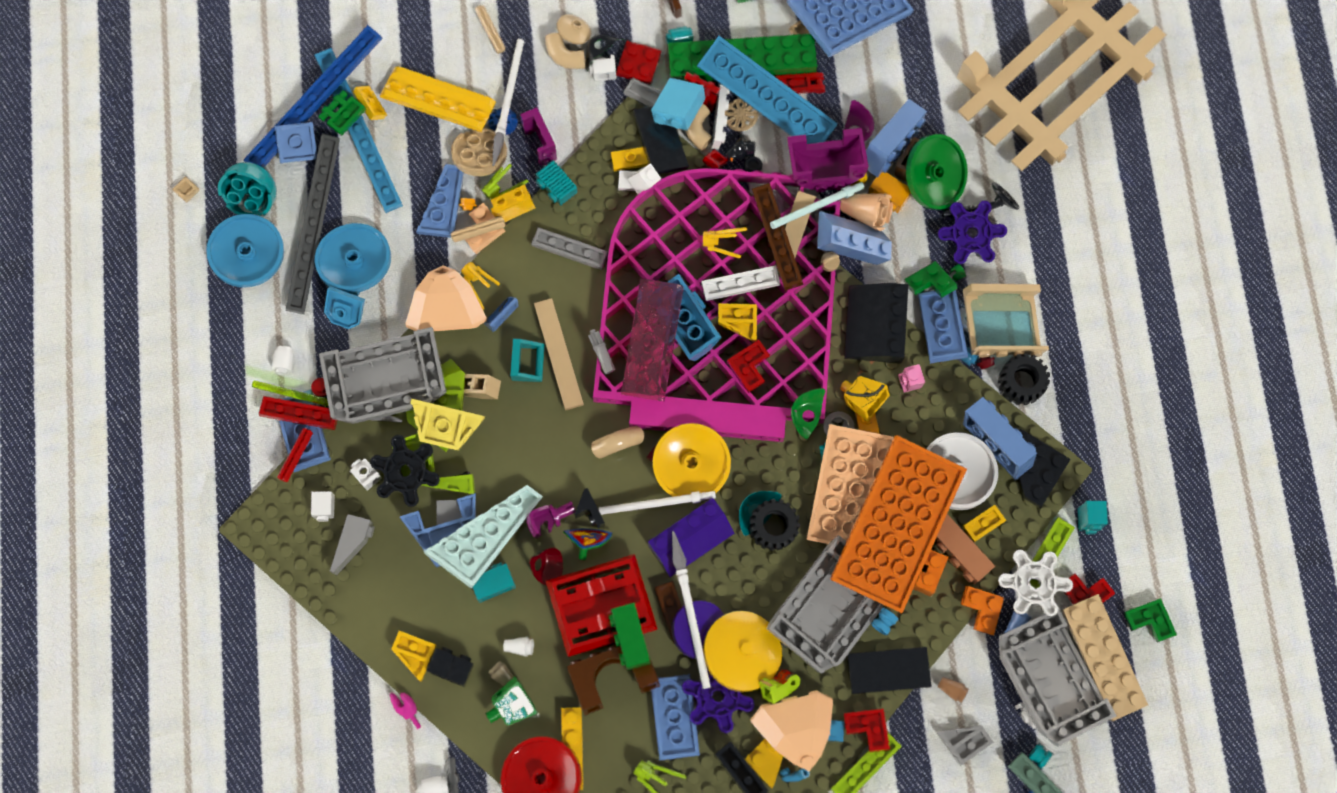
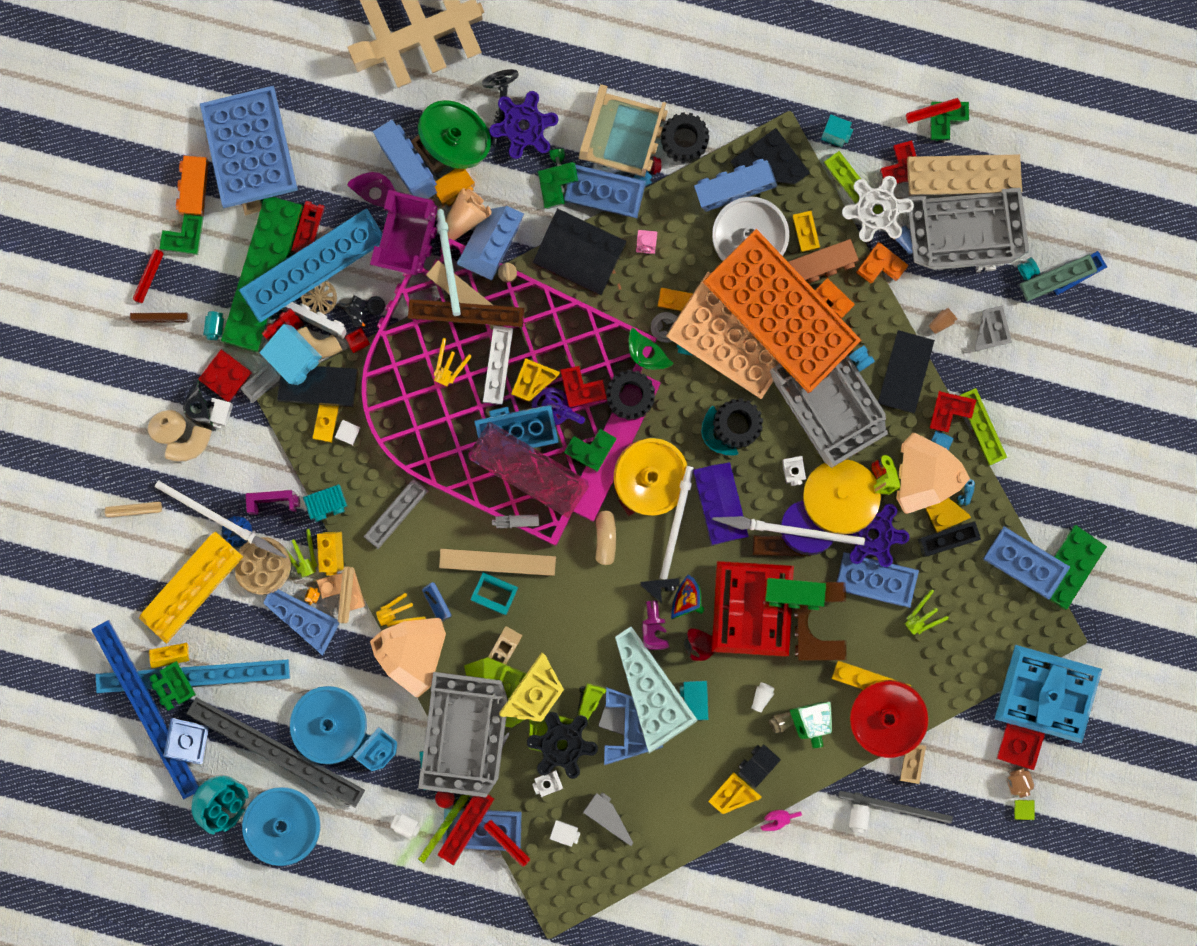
camera: 70 degrees left, 10 degrees up
(186, 189) = (191, 865): tan tile -> none
(644, 178) = (355, 416): white brick -> none
(691, 400) = (593, 454): none -> green plate
(721, 350) = (560, 408): none -> dark purple dish
(758, 596) = (788, 464): none -> white brick
(760, 395) = (637, 379): none -> black tyre
(864, 396) = (648, 292): yellow torso -> none
(1153, 602) = (933, 110): none -> red axle

